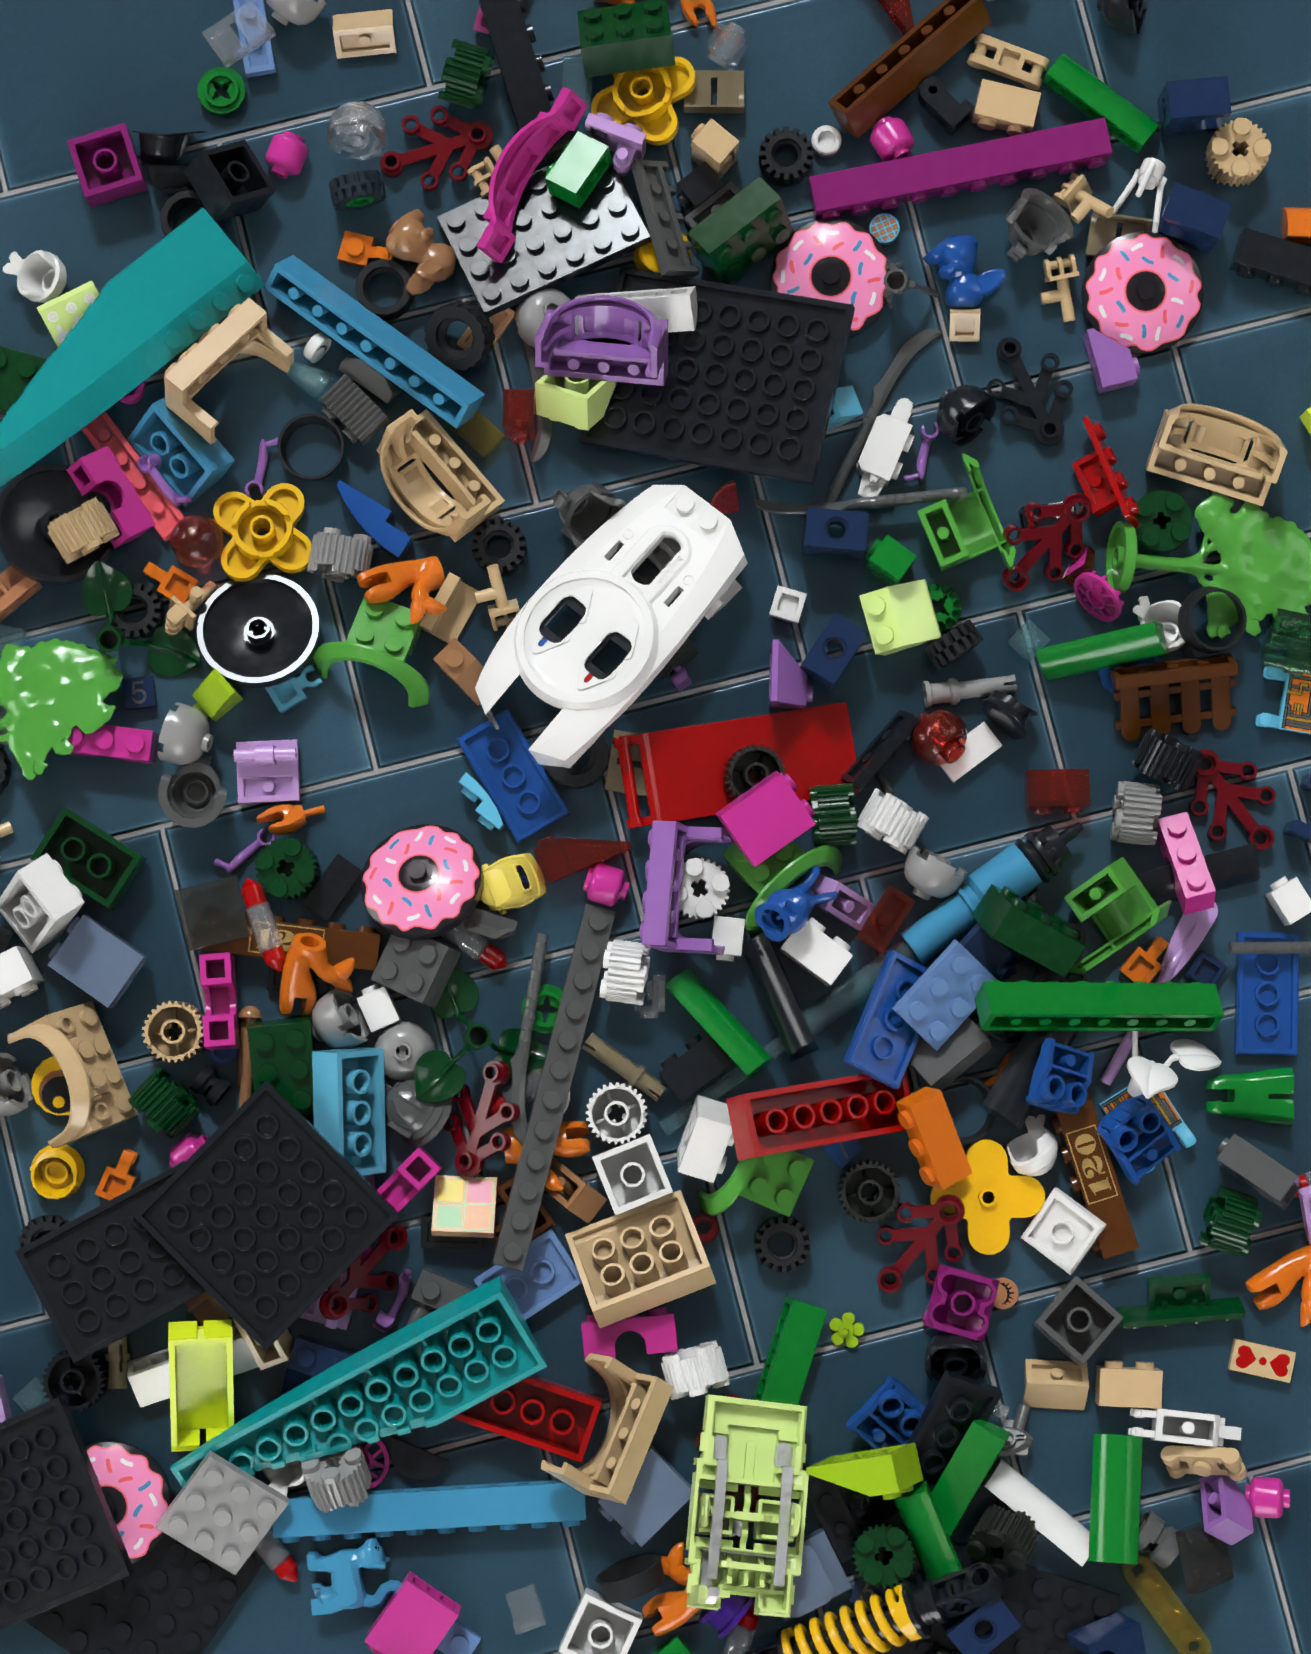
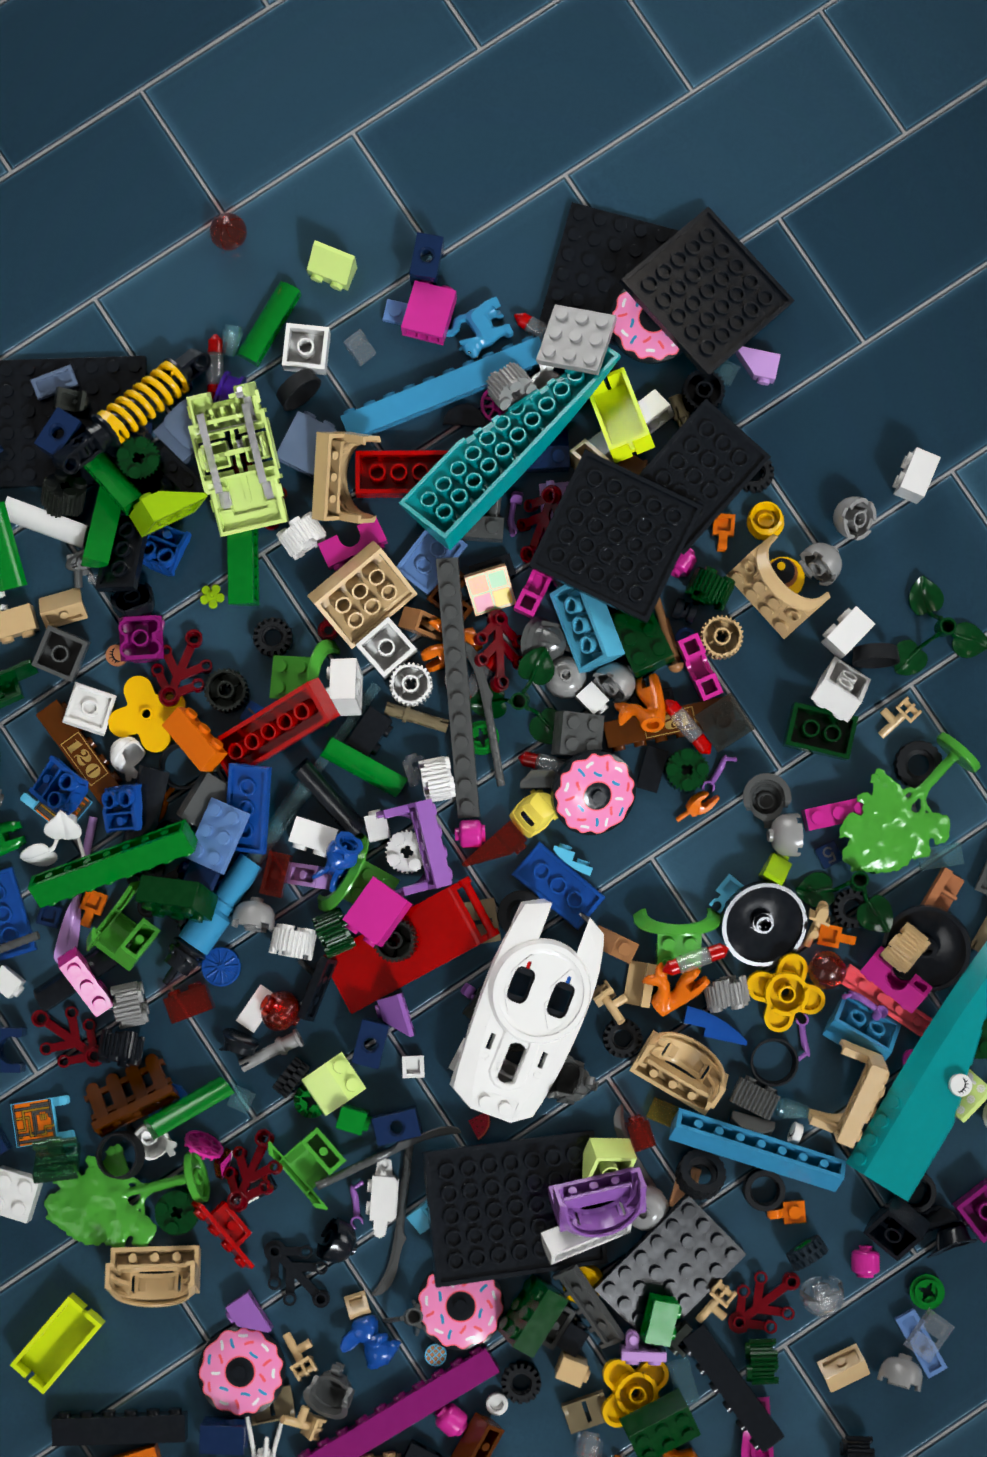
camera: 165 degrees right, 0 degrees up
(78, 329) = (960, 1085): none -> white tile
(97, 960) = (790, 666): sand blue brick -> none
(267, 771) = (723, 831): lavender plate -> none
(365, 611) = (695, 959): none -> piece
(414, 243) = (755, 1228): medium nougat animal -> none
(517, 165) = (703, 1305): dark pink piece -> none
(671, 1604) = (265, 382): orange piece -> none
(998, 823) = (221, 966): none -> blue wheel

